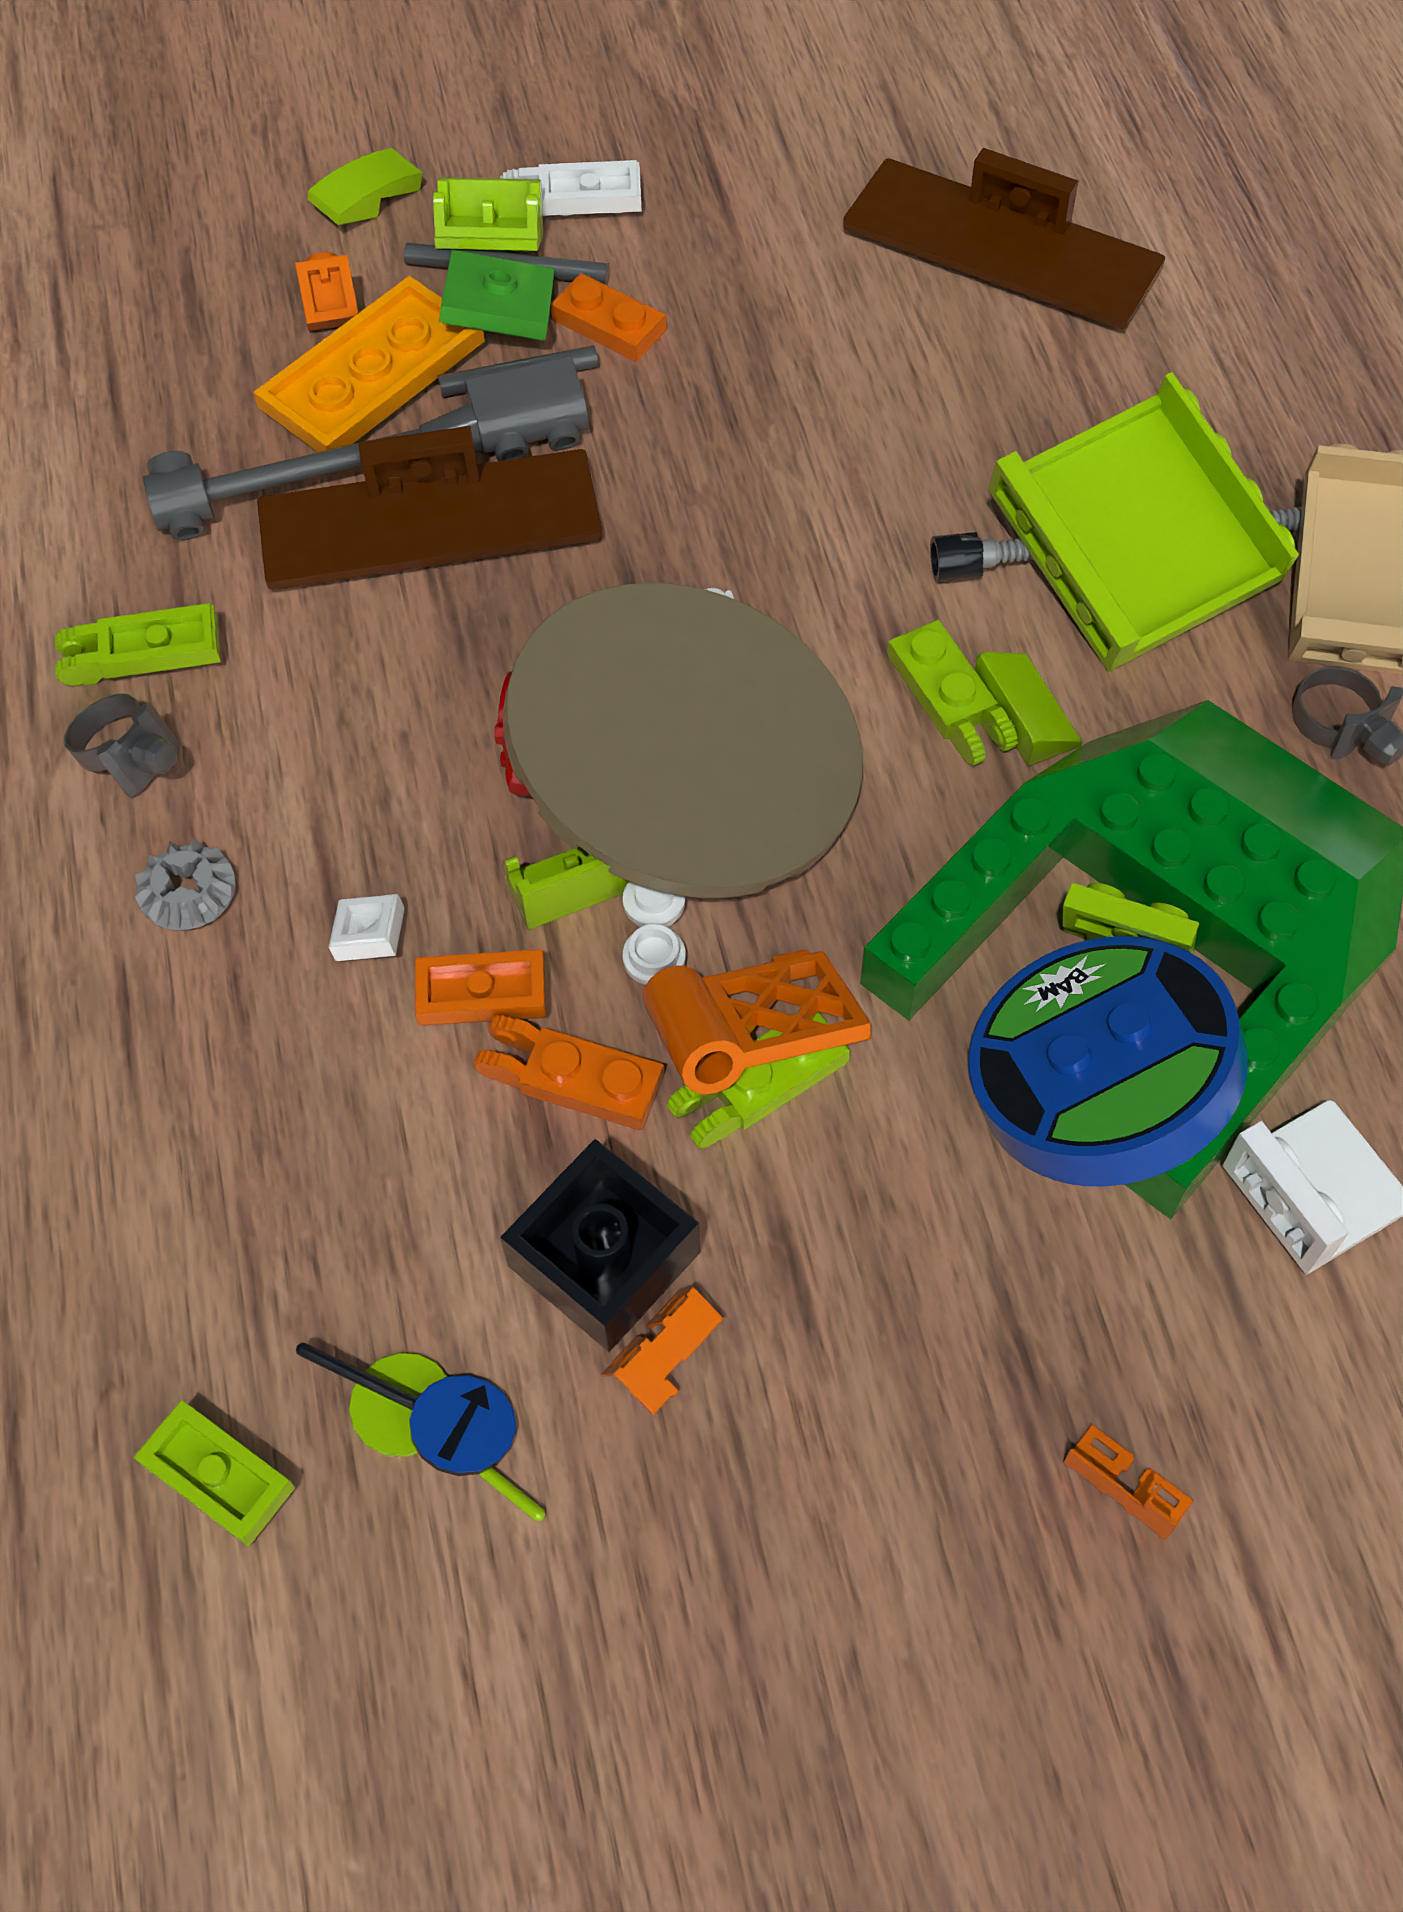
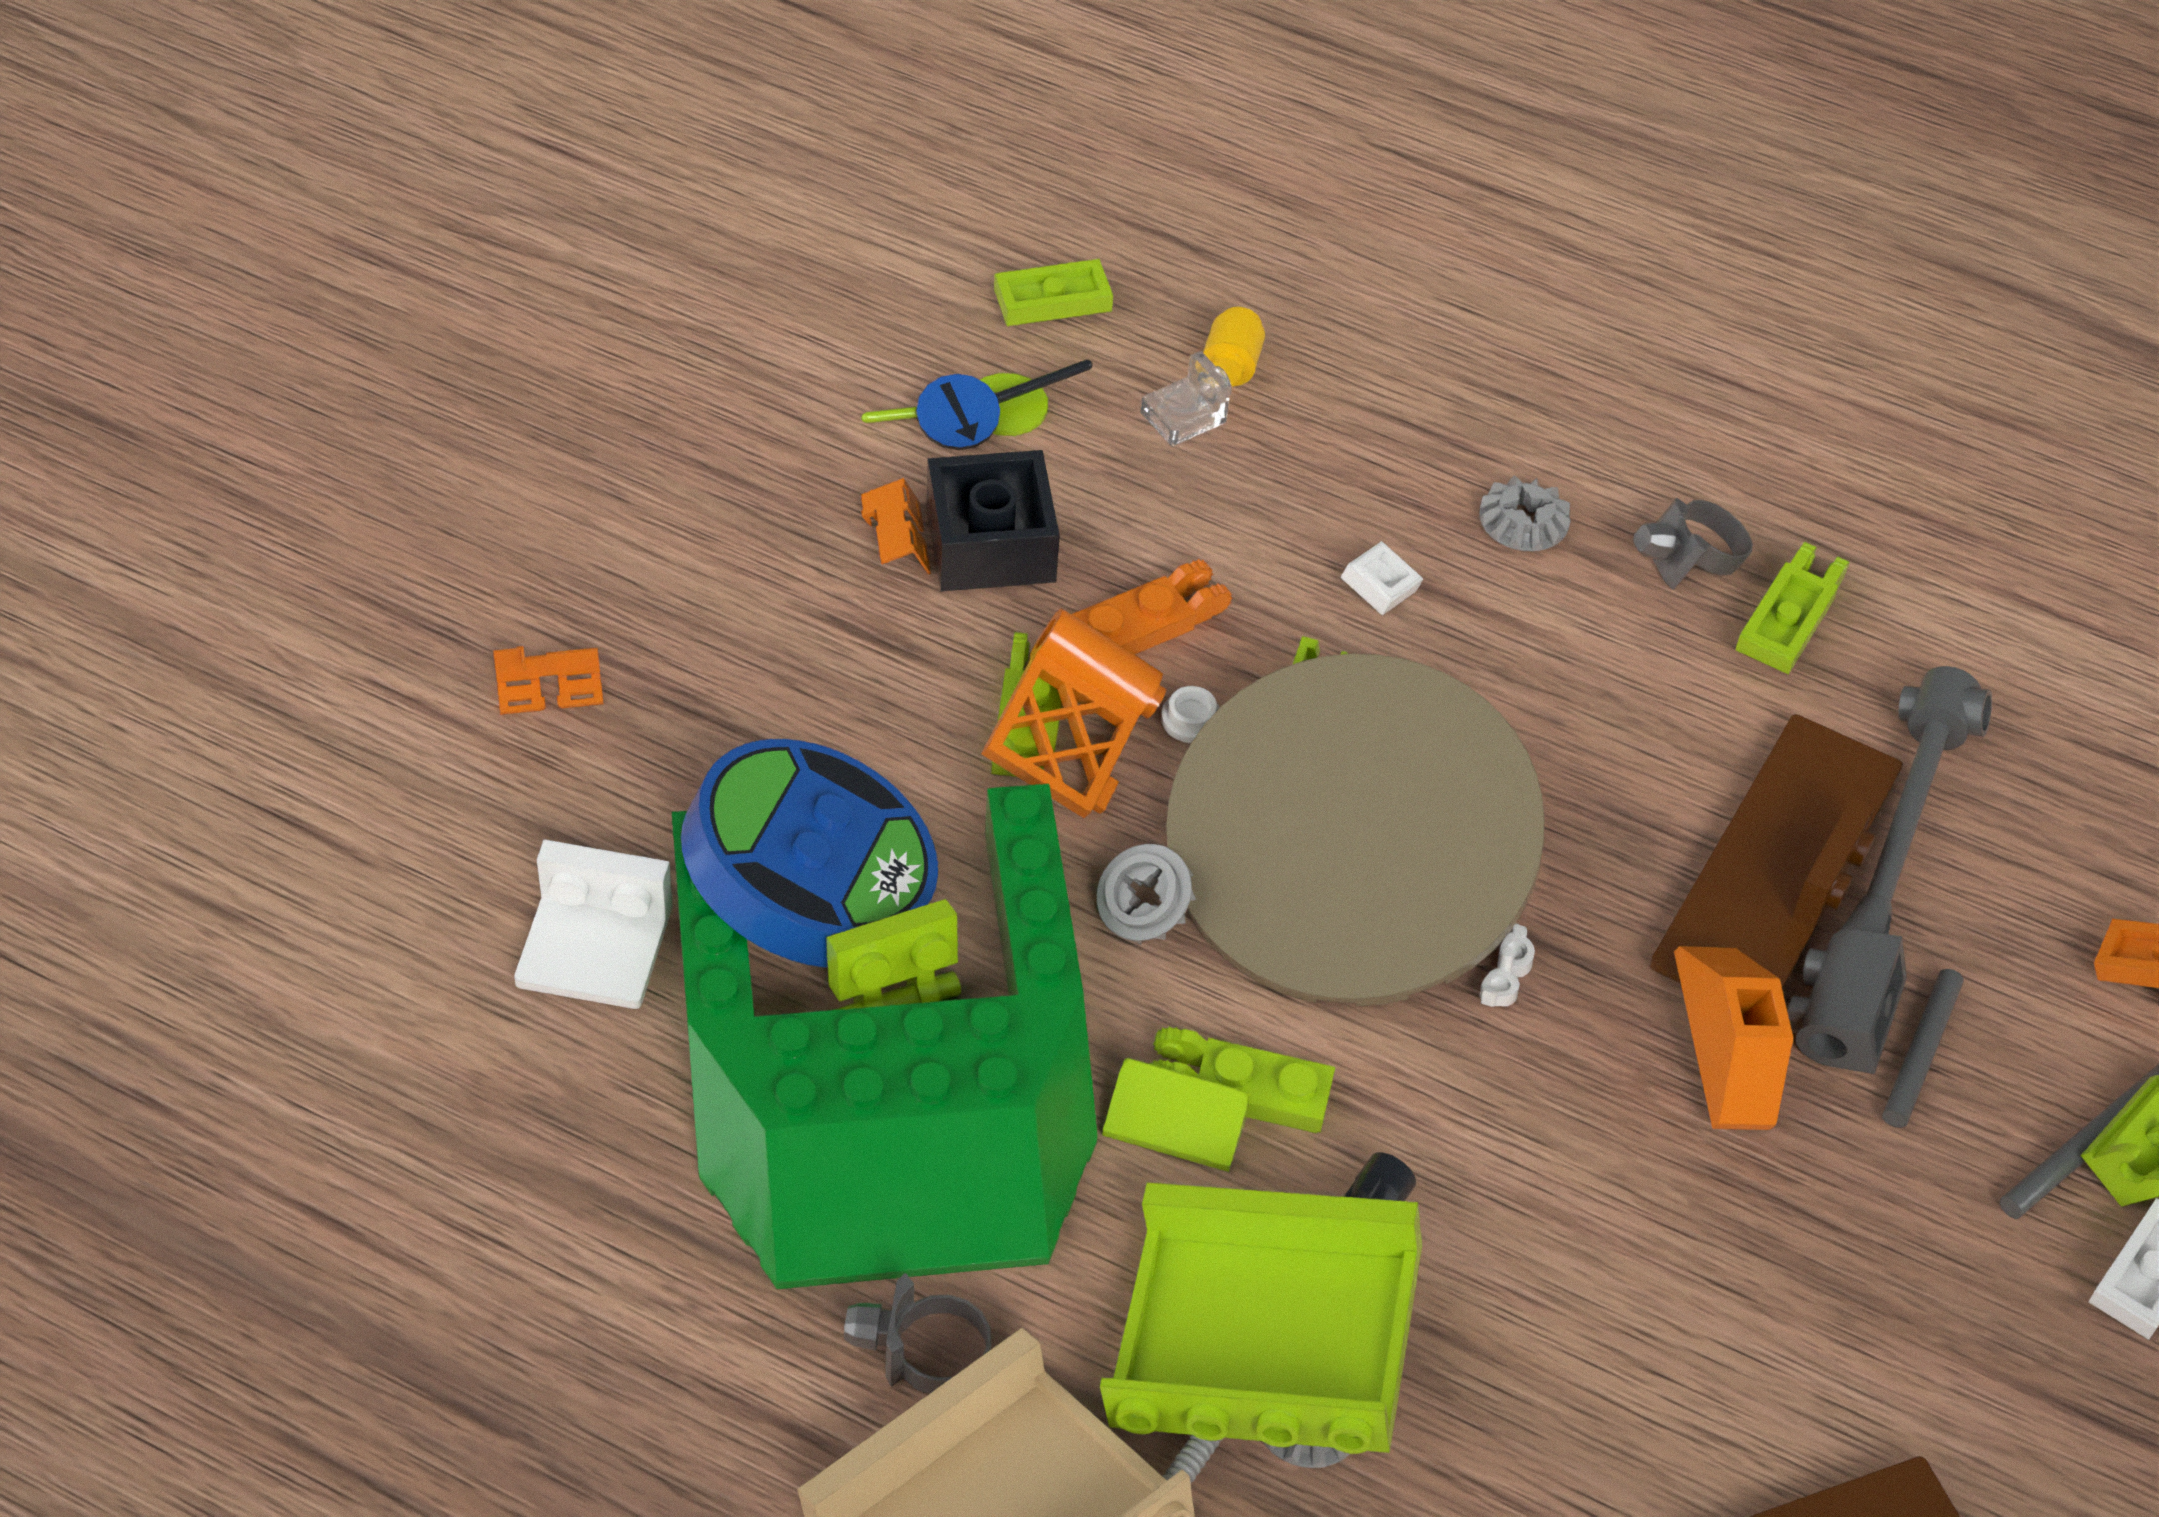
camera: 125 degrees right, 10 degrees down
(161, 1244) = (1236, 343): none -> yellow brick
(271, 1232) = (1191, 403): none -> clear bracket
(366, 368) = (2015, 935): light orange plate -> none
(480, 987) = (1264, 603): orange plate -> none
(497, 295) = (2031, 1073): bright green plate -> none
(608, 317) = (1943, 1165): orange plate -> none
(623, 438) = (1737, 1034): none -> orange slope
(887, 831) = (1145, 866): none -> light grey gear

